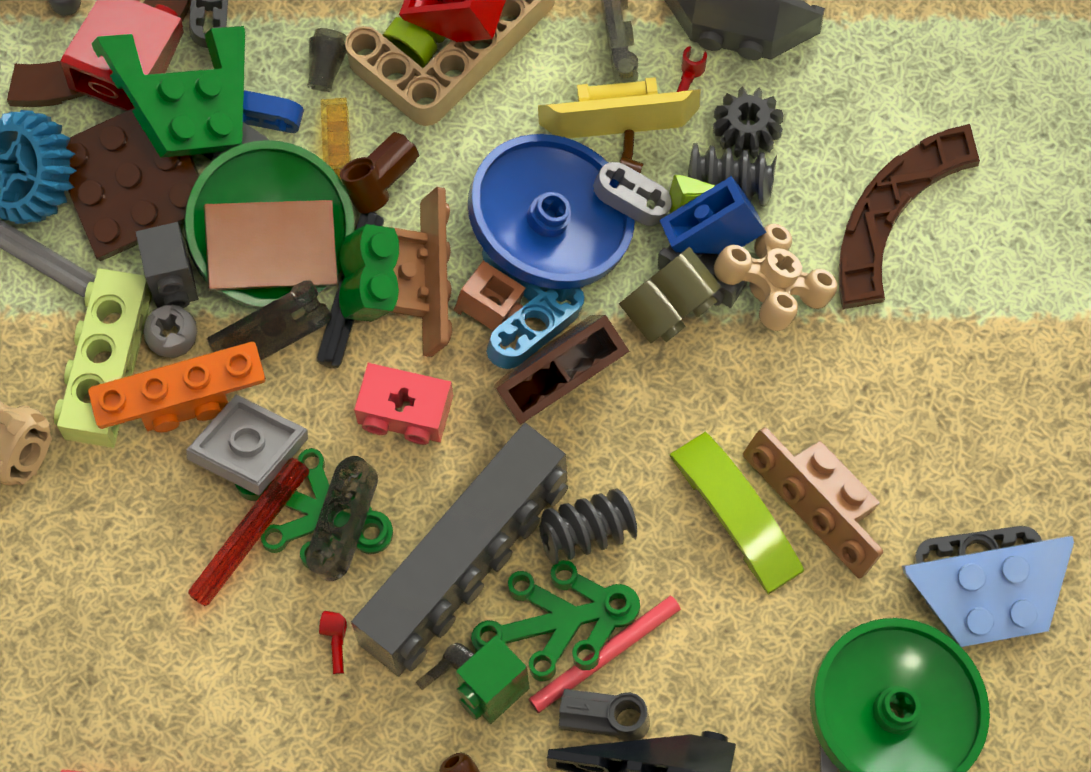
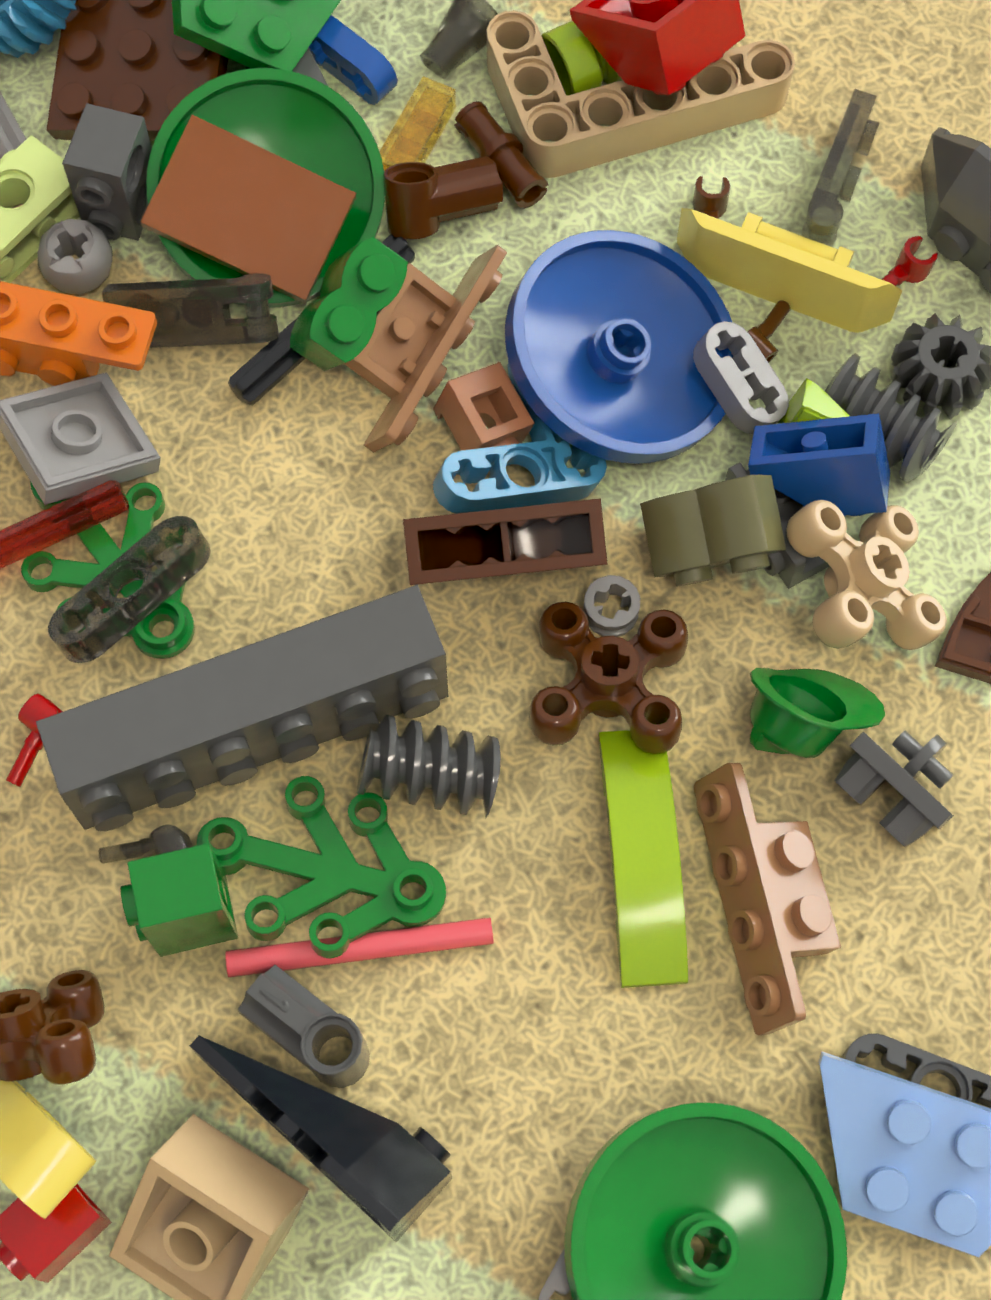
camera: 25 degrees right, 0 degrees up
(387, 389) = (286, 459): coral brick -> none
(398, 121) = (505, 150): none -> reddish brown pin
(549, 91) = (711, 204): none -> reddish brown hand
(646, 378) = (599, 592): none -> light grey bush
(675, 382) = (652, 719): none -> reddish brown gear
(785, 374) = (807, 710): none -> green piece
(840, 388) = (872, 766): none -> dark grey hips

